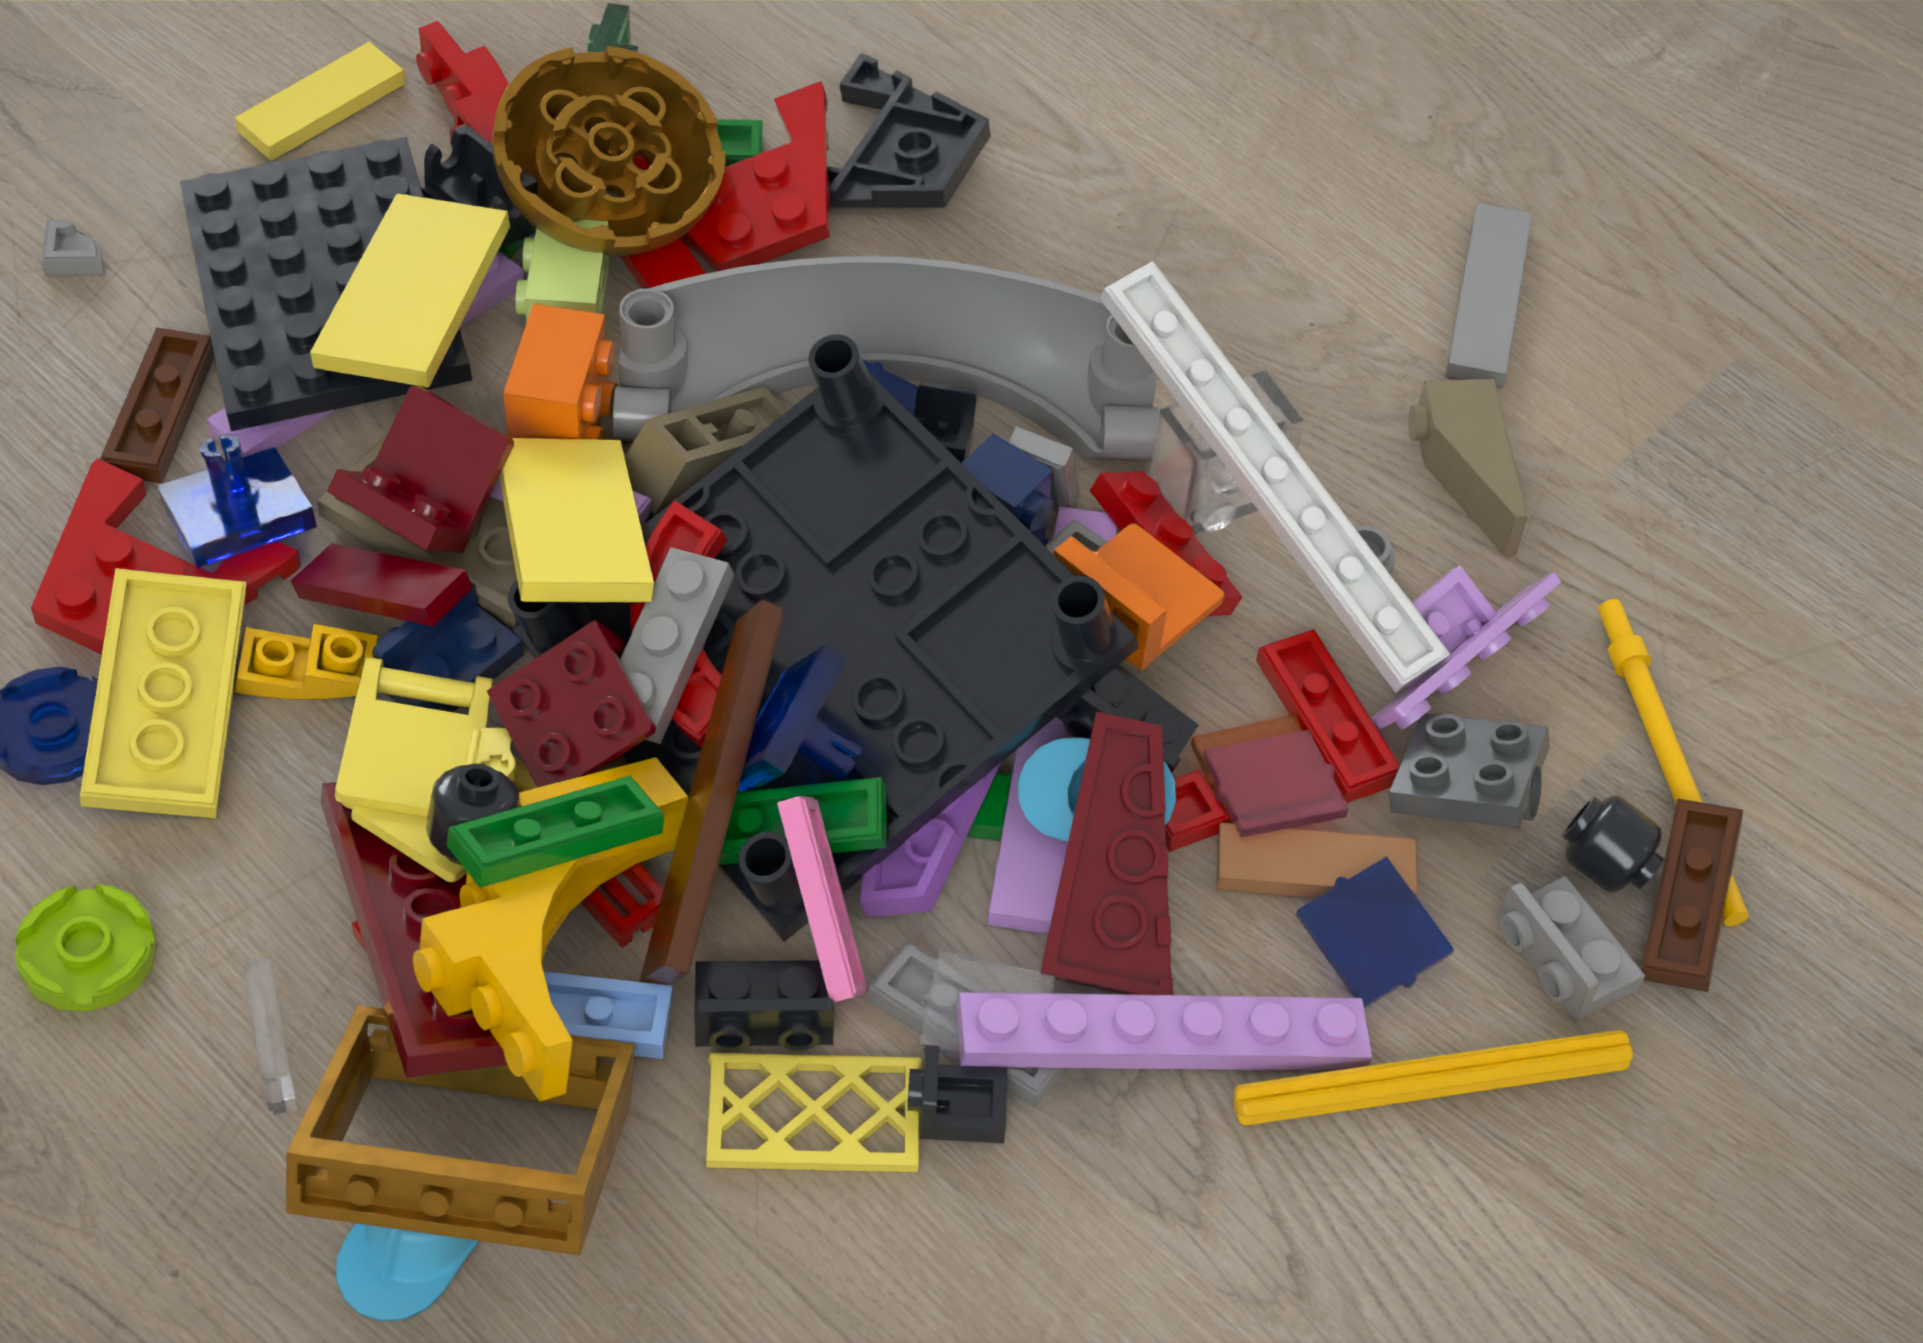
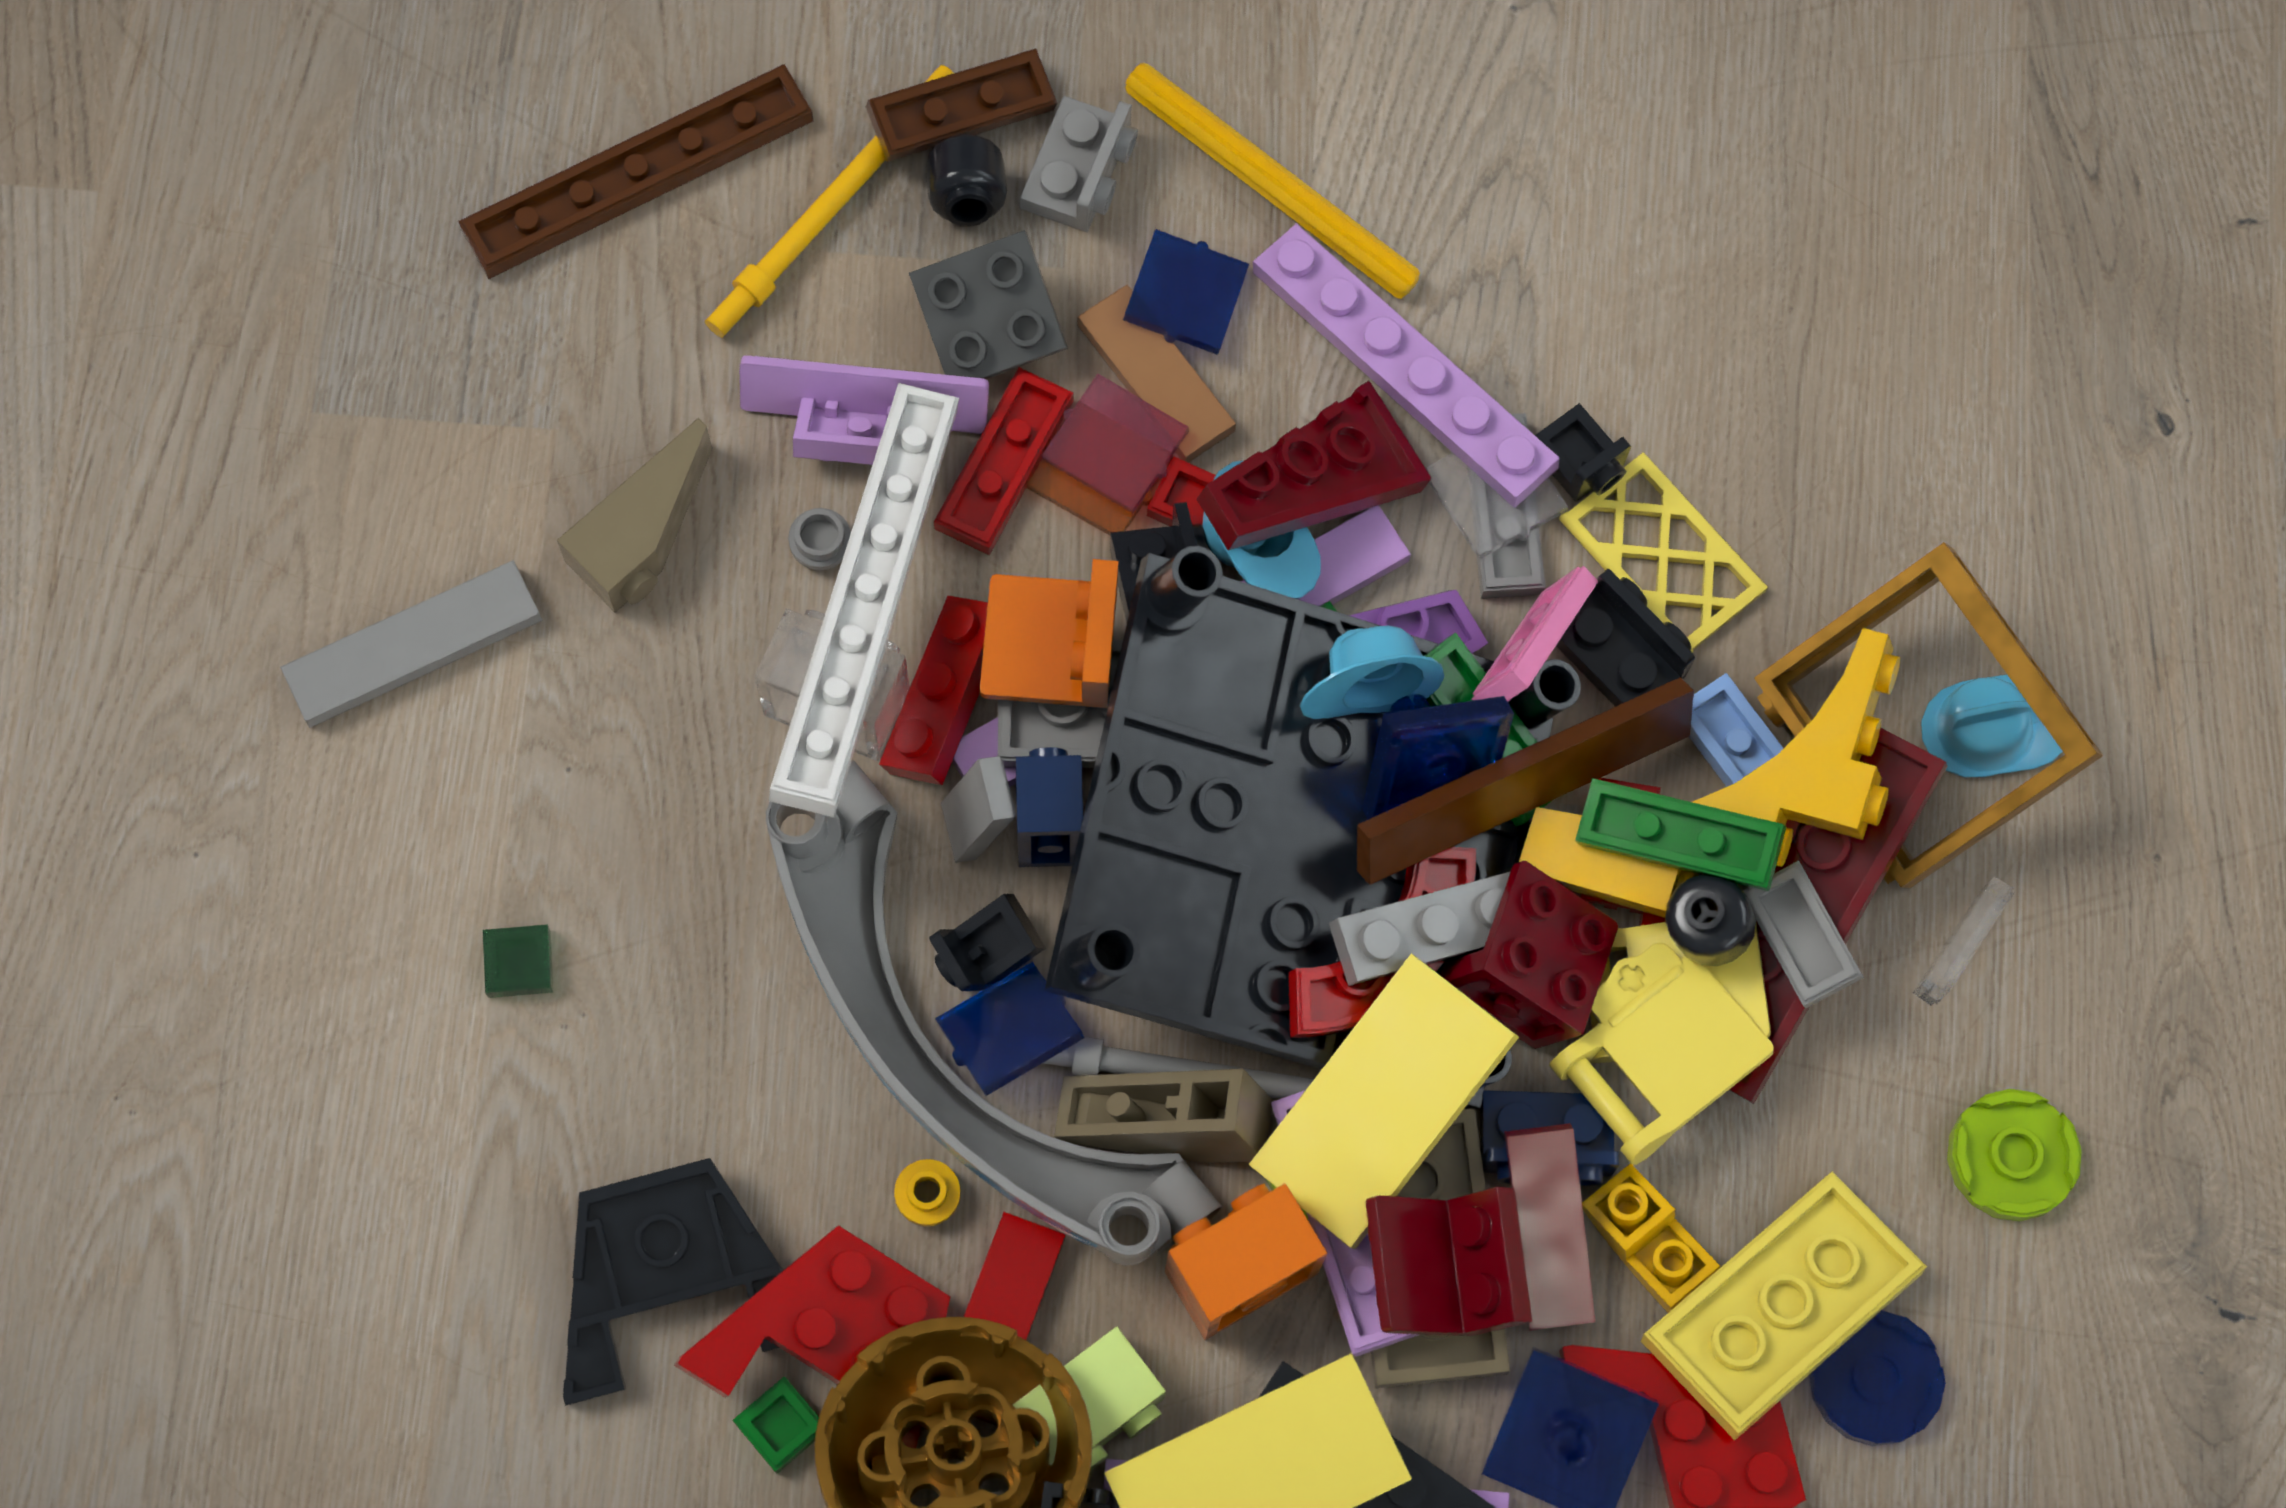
camera: 130 degrees left, 20 degrees up
(391, 880) = (1803, 936): none -> light grey tile
(907, 732) = (1372, 672): none -> medium azure piece
(1190, 211) = (517, 961): none -> clear green tile
(1802, 661) = (636, 171): none -> reddish brown tile

